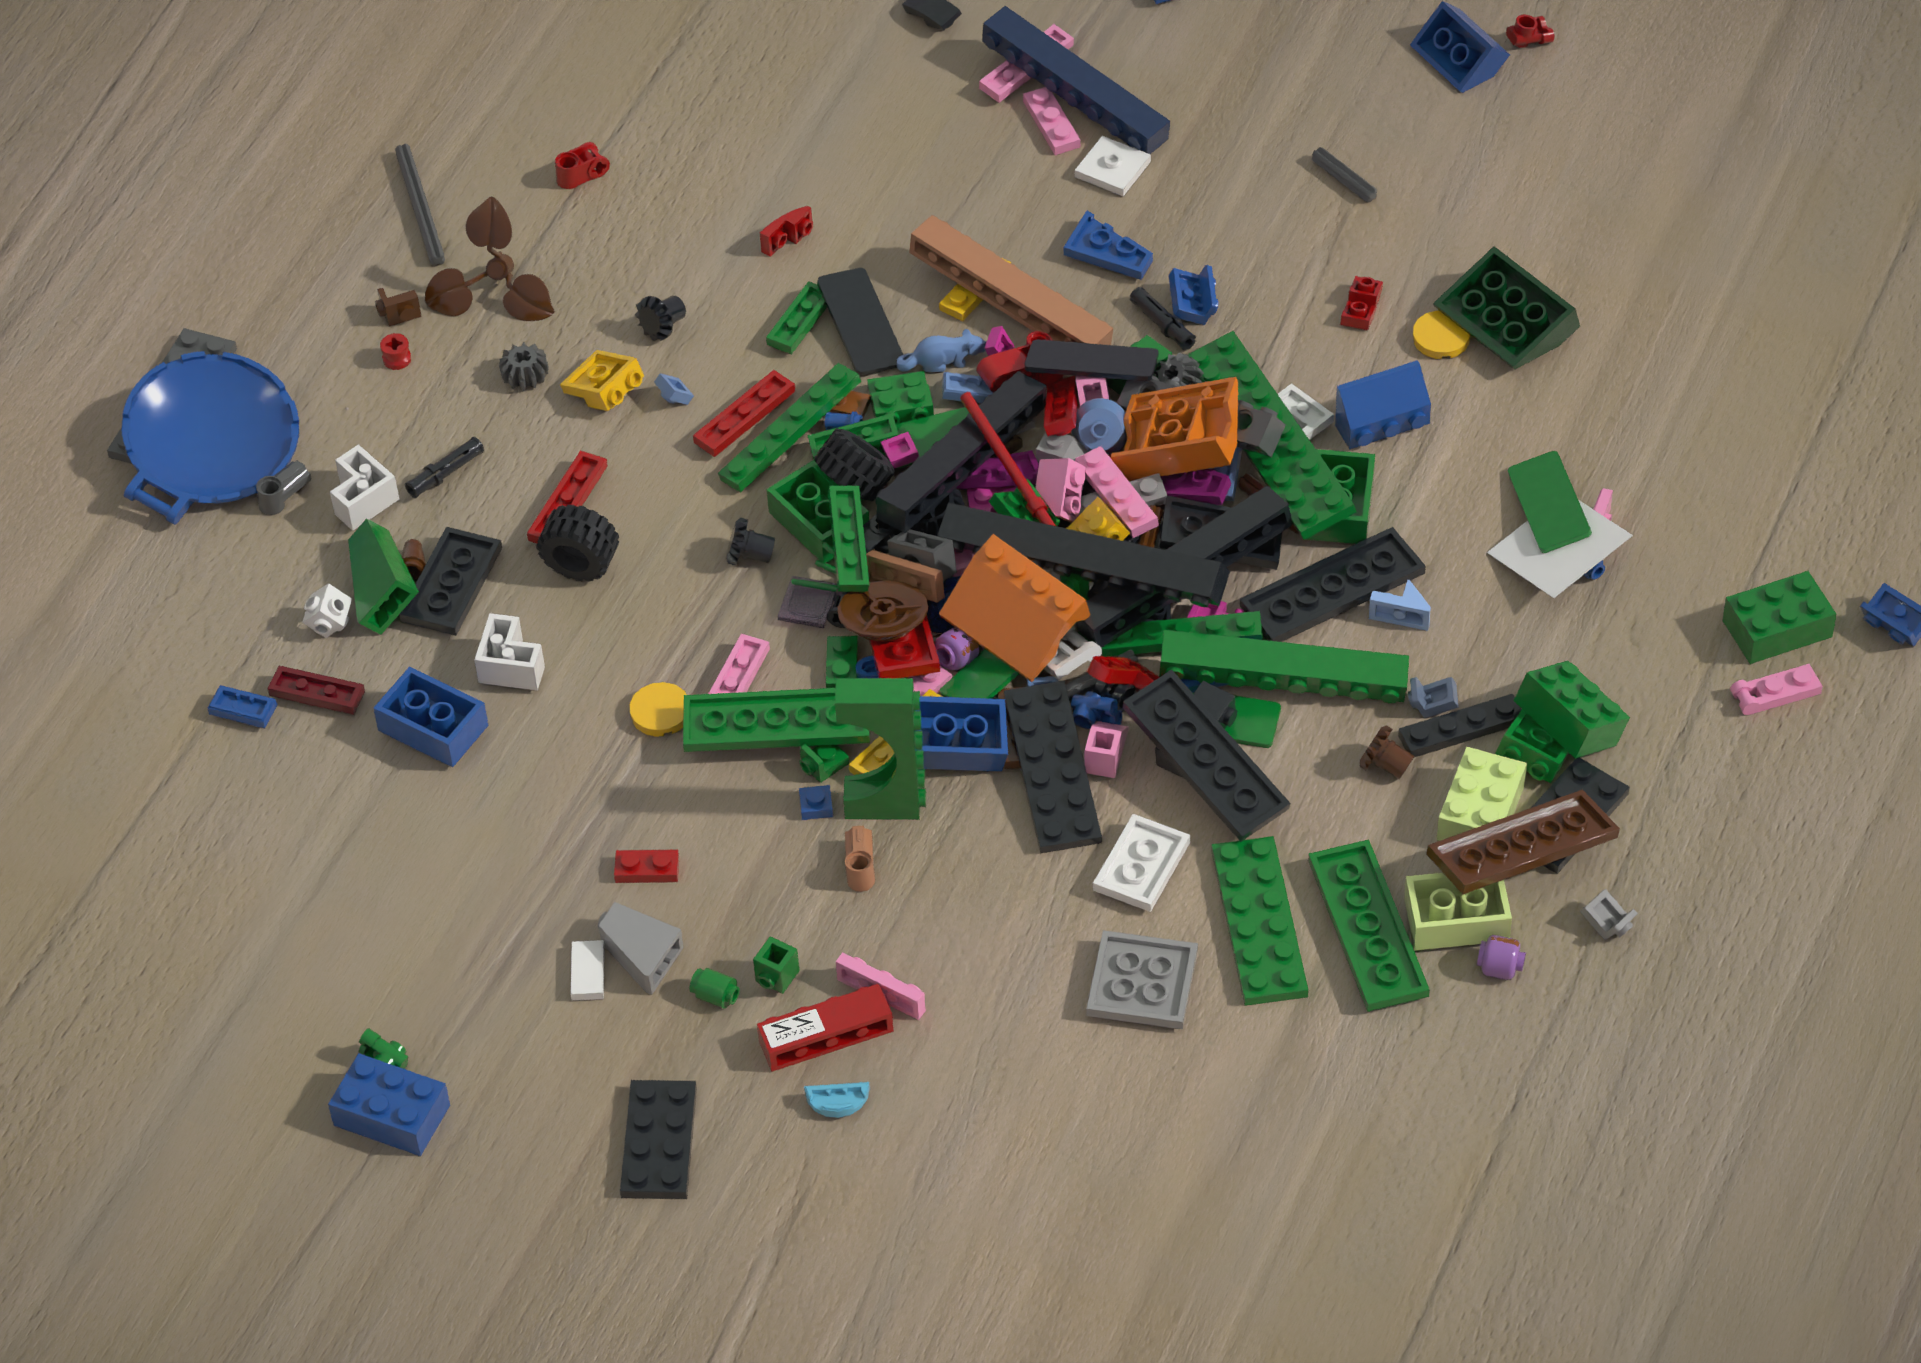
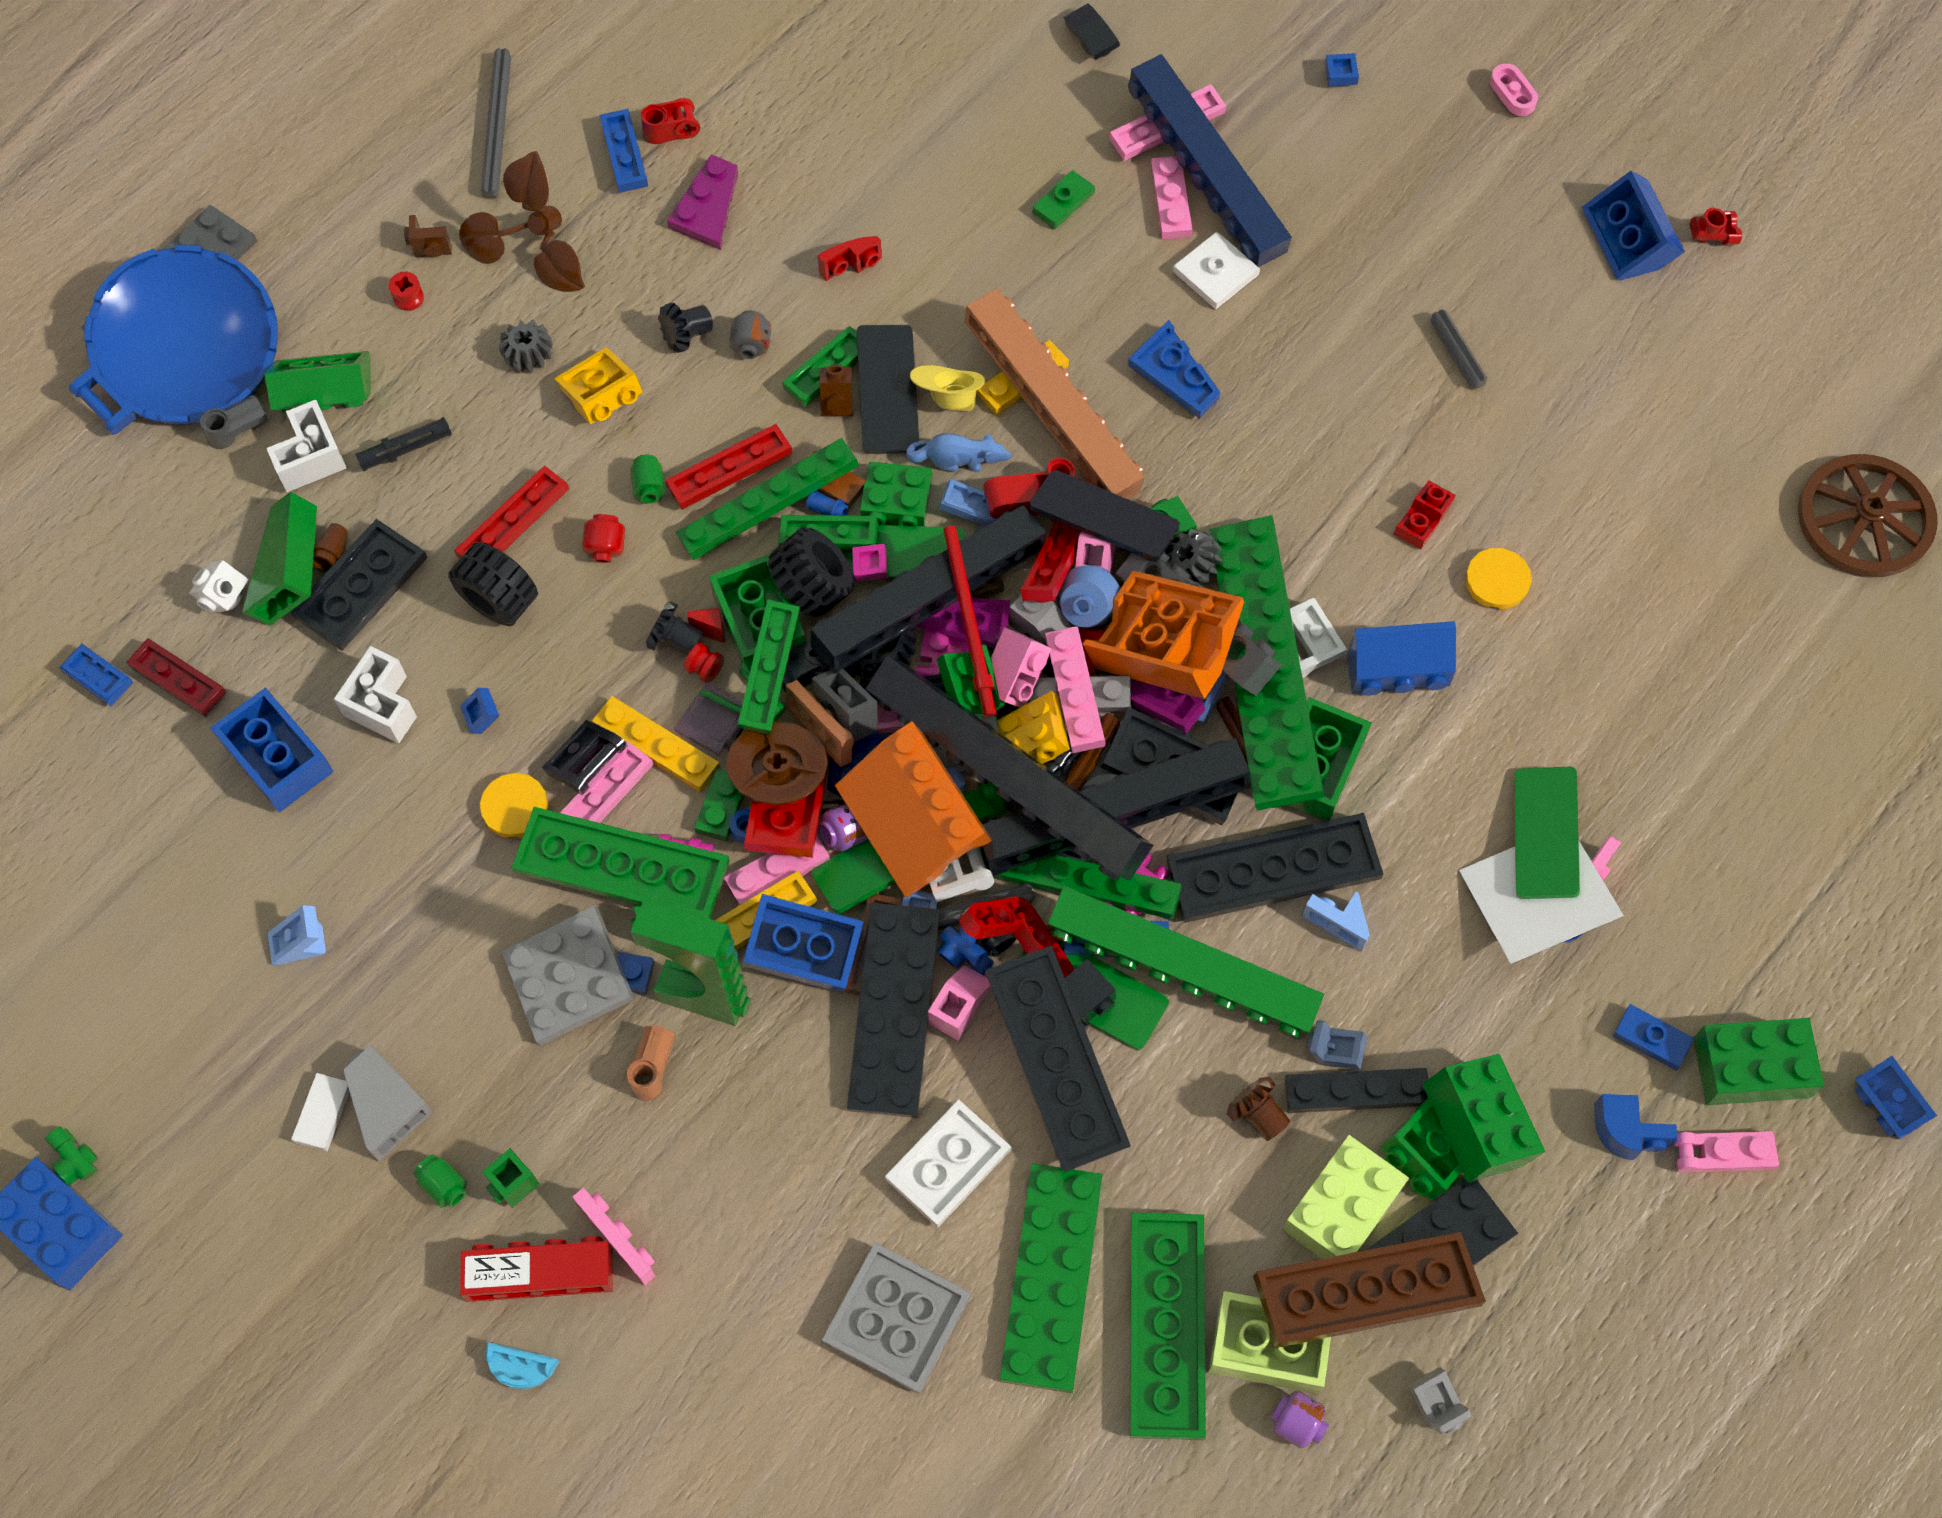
camera: 15 degrees right, 15 degrees up
(368, 429) = (319, 378): none -> green slope
(511, 847) = (297, 937): none -> light blue slope
(547, 198) = (623, 150): none -> blue plate
(601, 645) = (479, 710): none -> blue plate
(638, 222) = (706, 203): none -> magenta wing
(646, 866) = (430, 998): red plate -> none
(656, 491) = (603, 538): none -> red head
(658, 1139) = (316, 1354): black plate -> none
(673, 389) = (666, 417): medium blue plate -> none
(676, 439) = (647, 479): none -> green brick
(702, 649) = (579, 750): none -> black plate
(722, 309) = (750, 334): none -> dark grey head
(761, 815) = (567, 975): none -> light grey plate
(778, 528) = (708, 621): none -> red slope
(782, 636) = (659, 744): none -> yellow plate
(784, 561) = (703, 662): none -> red wheel
(817, 332) = (836, 391): none -> reddish brown bracket
(917, 308) = (949, 387): none -> light yellow piece
(957, 144) = (1063, 199): none -> green plate
(998, 341) = (1020, 459): dark pink plate -> none
(1170, 325) = (1209, 484): black pin -> none
(1193, 294) = (1246, 455): blue bracket -> none
(1508, 310) = (1578, 574): dark green slope -> none
(1689, 626) = (1653, 1037): none -> blue plate
(1691, 695) = (1621, 1131): none -> blue brick
(1732, 209) = (1866, 517): none -> reddish brown wheel

